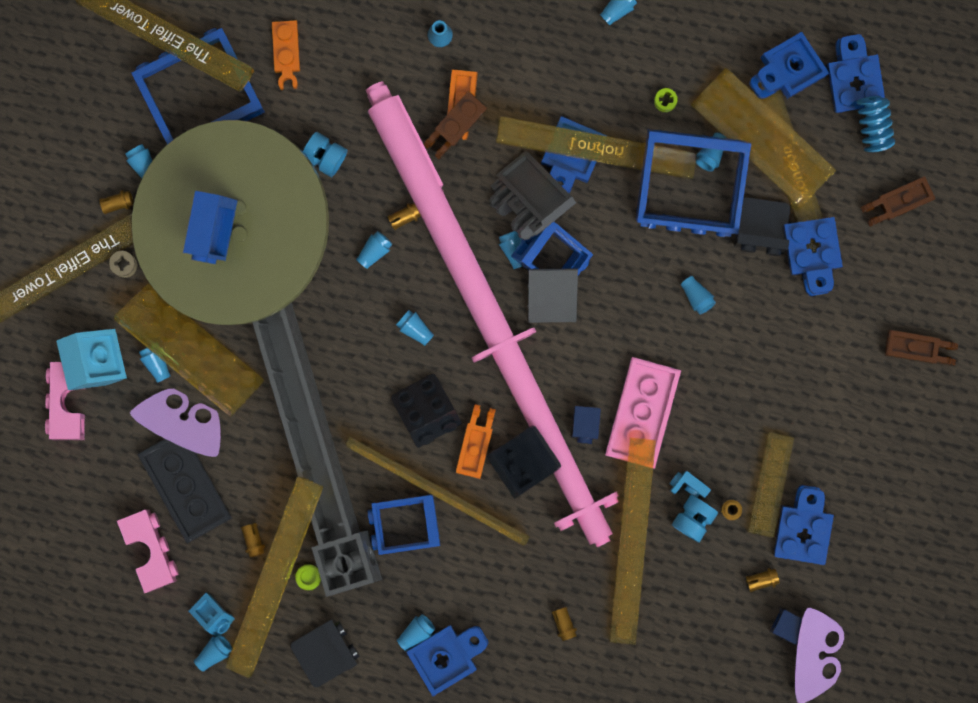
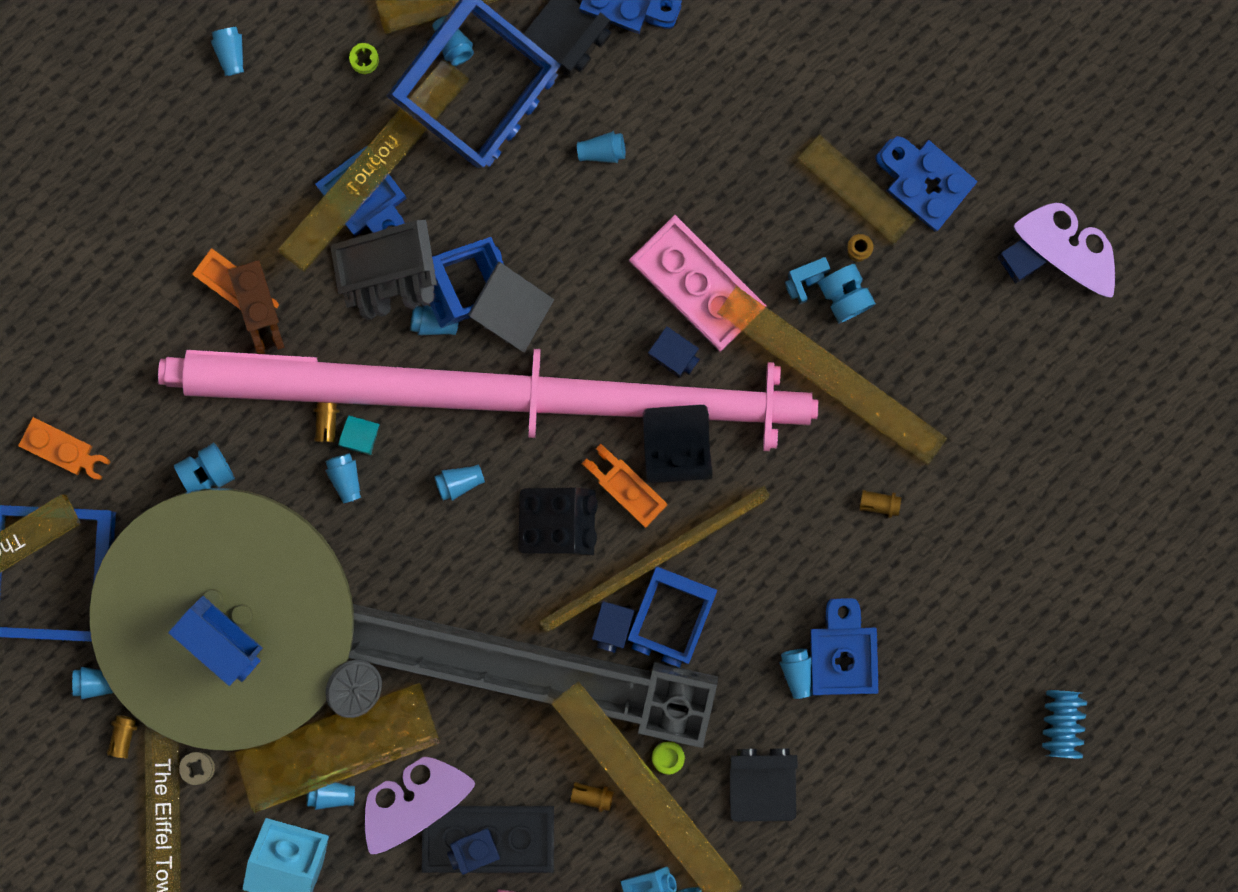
camera: 60 degrees left, 0 degrees up
(169, 481) = (473, 851): none -> dark blue bracket
(233, 337) = (353, 688): none -> dark grey wheel
(375, 488) = (612, 626): none -> dark blue brick
(408, 243) = (359, 435): none -> teal slope
(440, 39) = (148, 270): dark azure cone -> none
(763, 580) = (955, 257): pearl gold pin -> none

